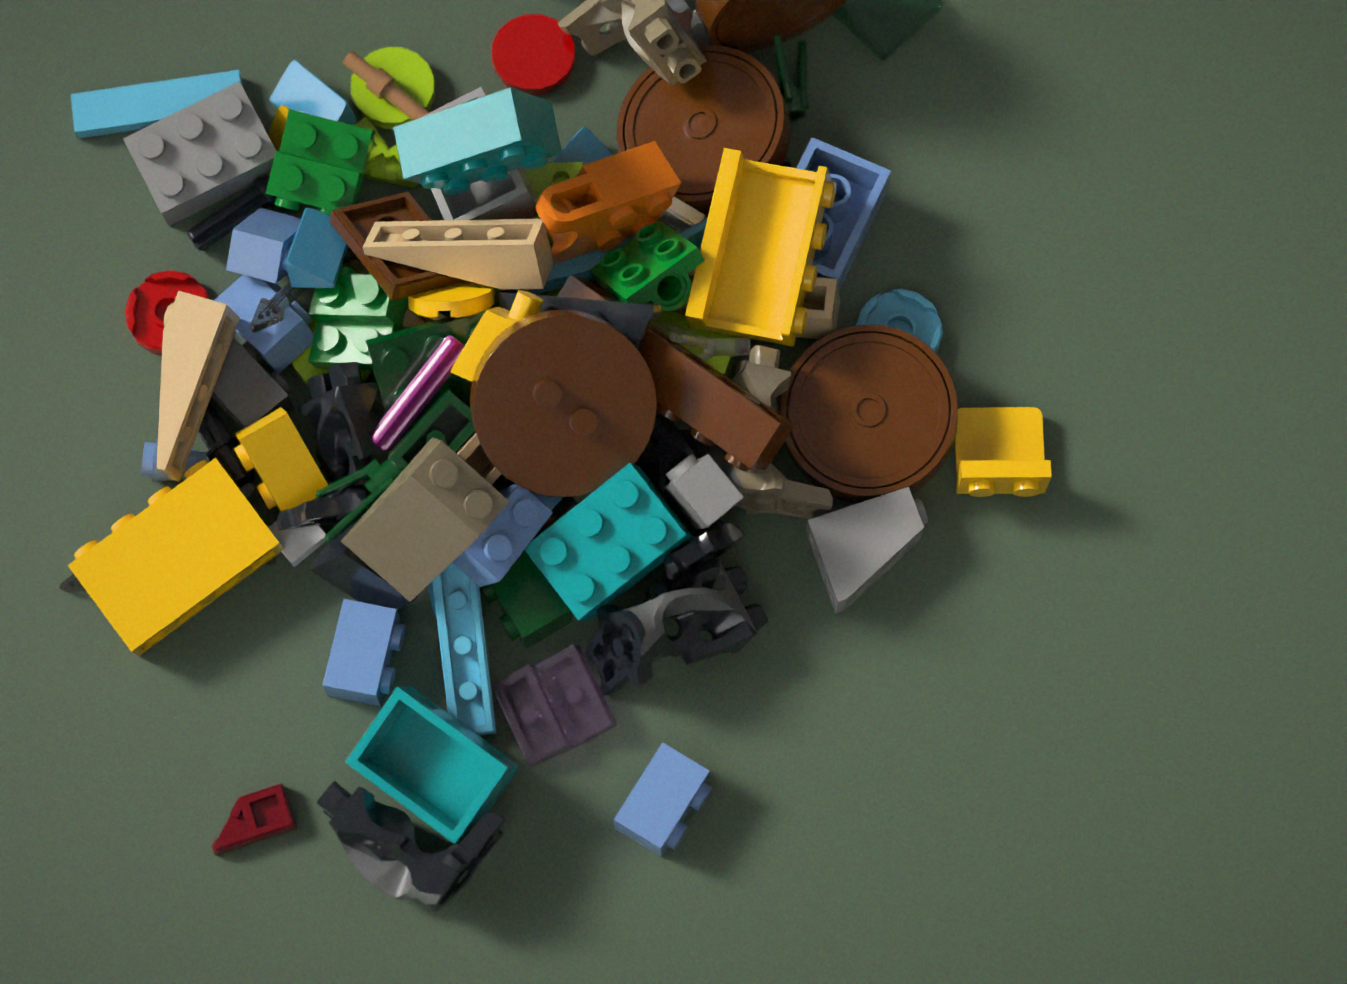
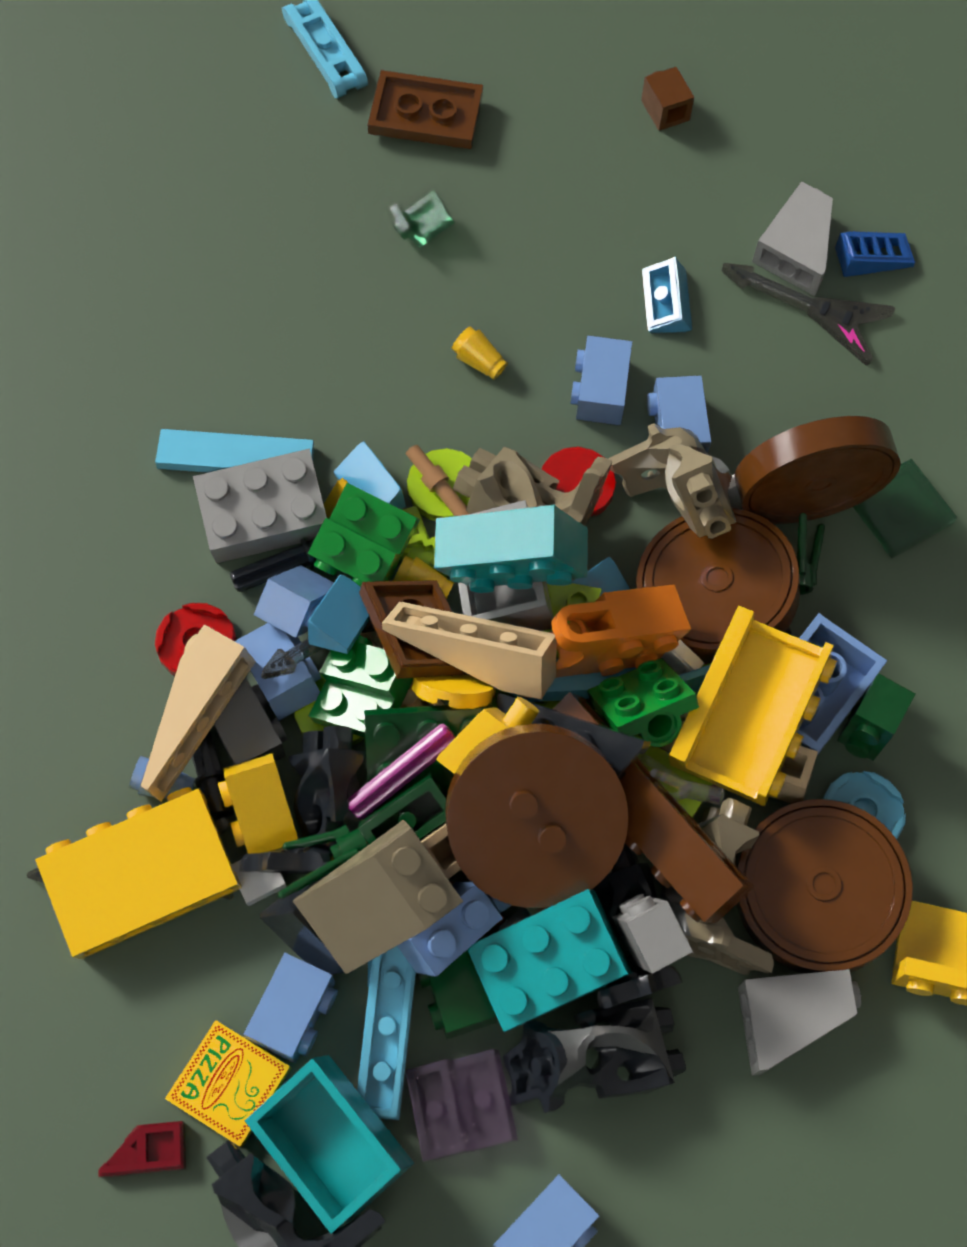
camera: 10 degrees right, 5 degrees down
(316, 737) = (227, 1082): none -> yellow tile
(386, 185) = (418, 570): none -> yellow cone
(462, 65) = (511, 478): none -> dark tan hips
(890, 232) = (876, 717): none -> dark green brick

